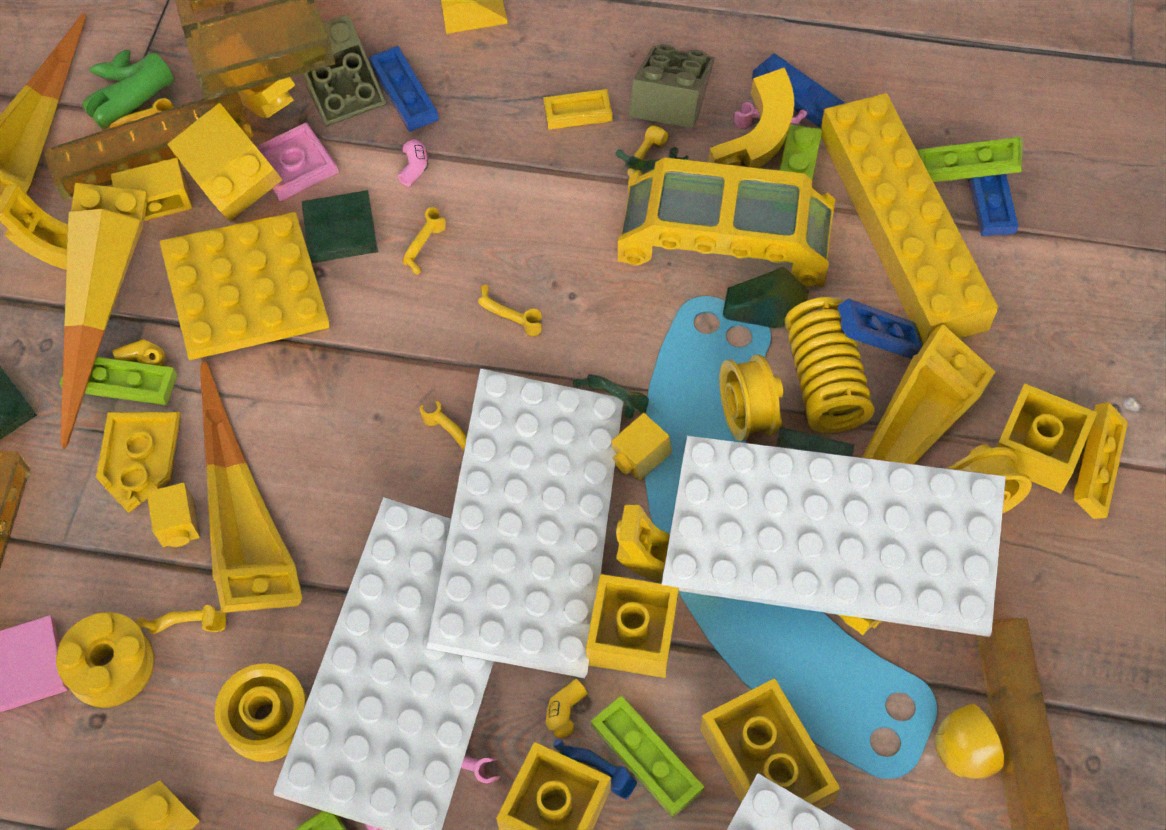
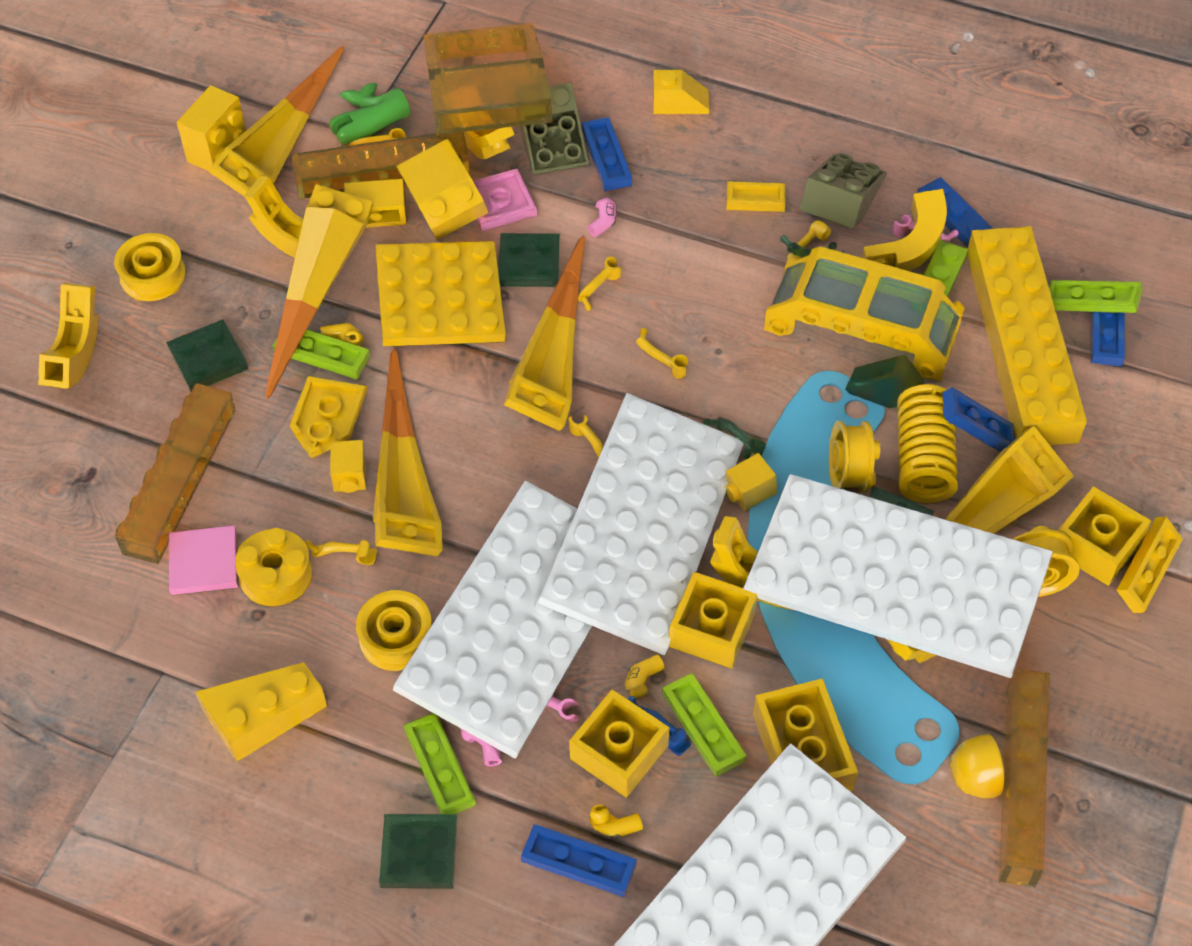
camera: 10 degrees right, 5 degrees down
(381, 361) = (544, 374): none -> yellow plate

